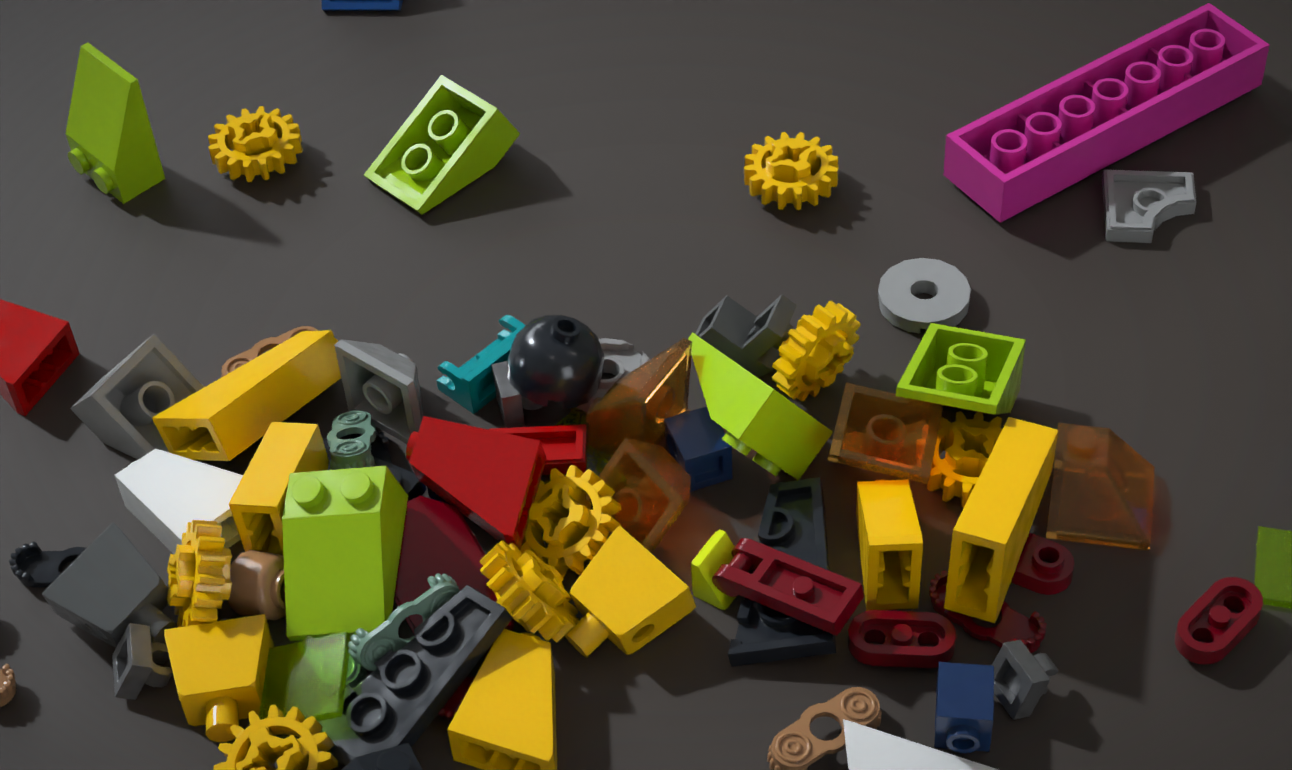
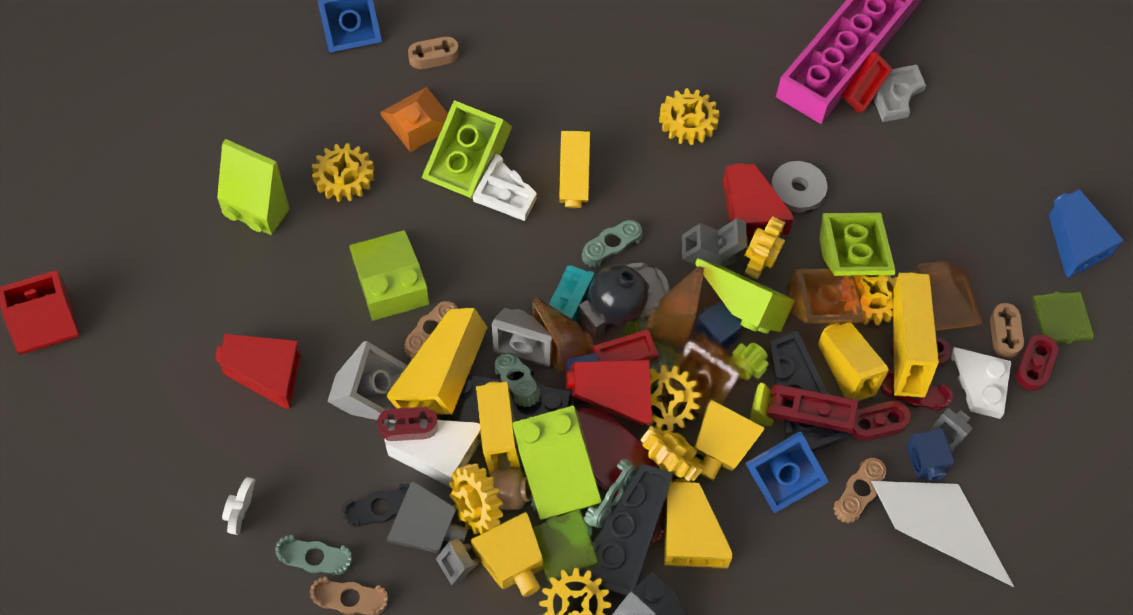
camera: 25 degrees left, 15 degrees up
(156, 450) = (407, 424): none -> dark red beam
(247, 283) = (389, 275): none -> lime slope
(388, 100) = (416, 119): none -> orange slope
(443, 387) = (566, 334): none -> clear orange slope
(461, 32) = (433, 52): none -> medium nougat beam
(469, 210) = (505, 191): none -> white wing
(581, 195) = (574, 168): none -> yellow slope
(621, 299) = (597, 250): none -> sand green piece
(701, 662) = (787, 472): none -> blue slope
(723, 502) = (750, 360): none -> lime gear
(836, 273) = (753, 199): none -> red slope
(1092, 174) = (867, 82): none -> red tile
(1113, 628) = (983, 380): none -> white wing
(1176, 563) = (1001, 331): none -> medium nougat beam

